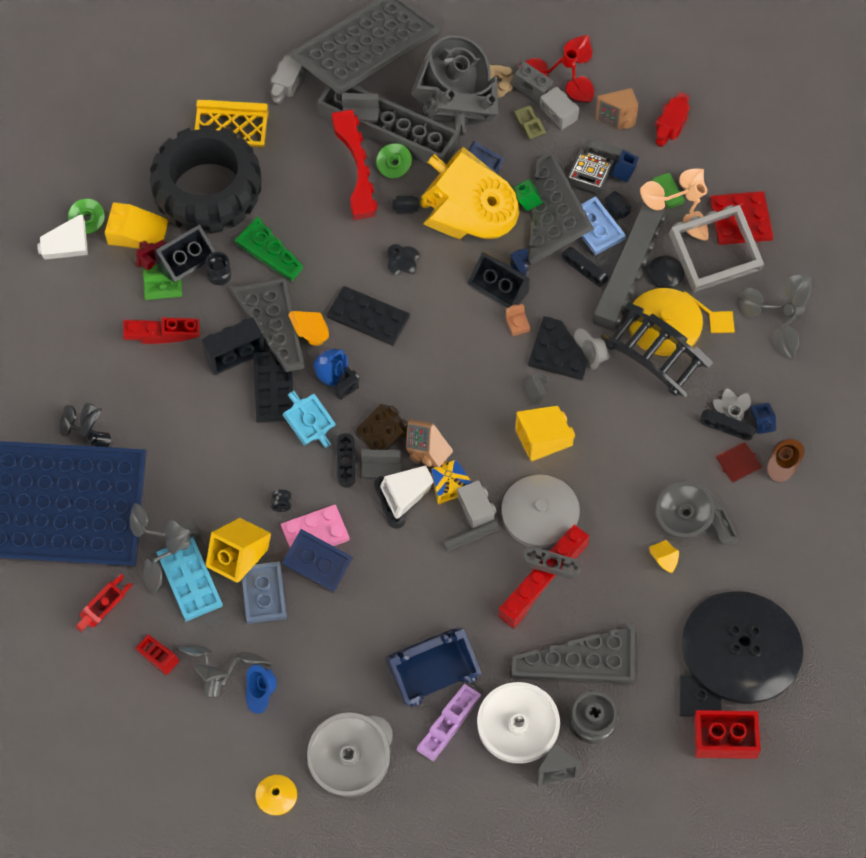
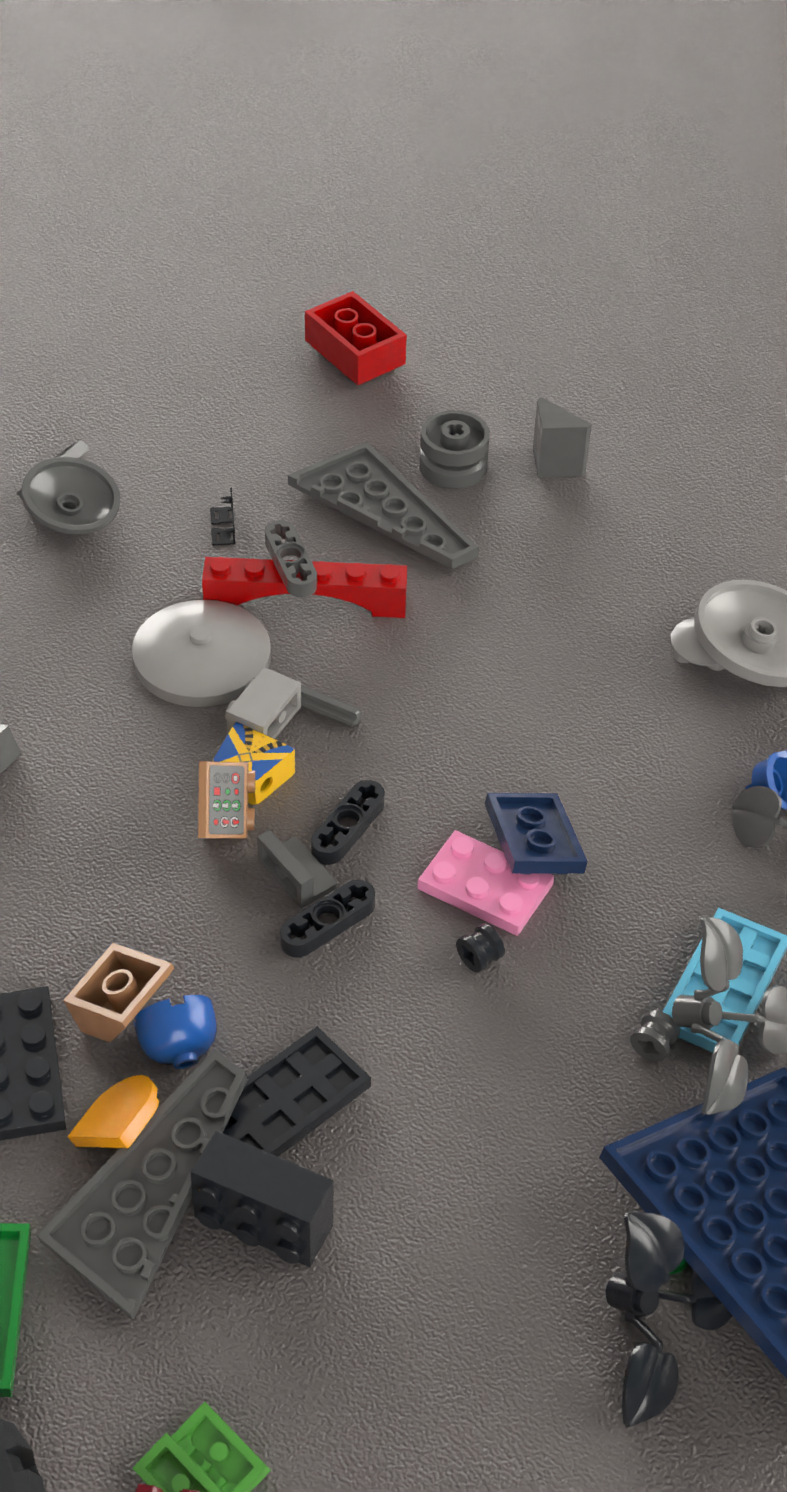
camera: 130 degrees left, 15 degrees down
(164, 331) = (321, 1371): red slope -> none
(183, 254) = (122, 1441): black slope -> none
(218, 268) = (103, 1364): black wheel -> none
(236, 548) = (620, 931): yellow slope -> none
(264, 593) = (645, 876): sand blue plate -> none
(309, 419) = (305, 997): medium azure plate -> none
(347, 385) = (185, 983): black bracket -> none
(361, 354) = (115, 991): none -> medium nougat slope
(382, 427) = (230, 893): dark brown bracket -> none
(406, 488) = (316, 793): white slope -> none
(433, 665) = (540, 638): dark blue windscreen -> none
(449, 722) = (610, 578): lavender slope -> none
(518, 722) = (536, 505): white dish -> none
(543, 431) = (70, 699): yellow slope -> none
(621, 579) = (223, 518): none -> black piece
(665, 555) = (153, 498): yellow tile -> none
(696, 697) = (322, 391): black plate -> none
(739, 671) = (220, 384): black dish -> none

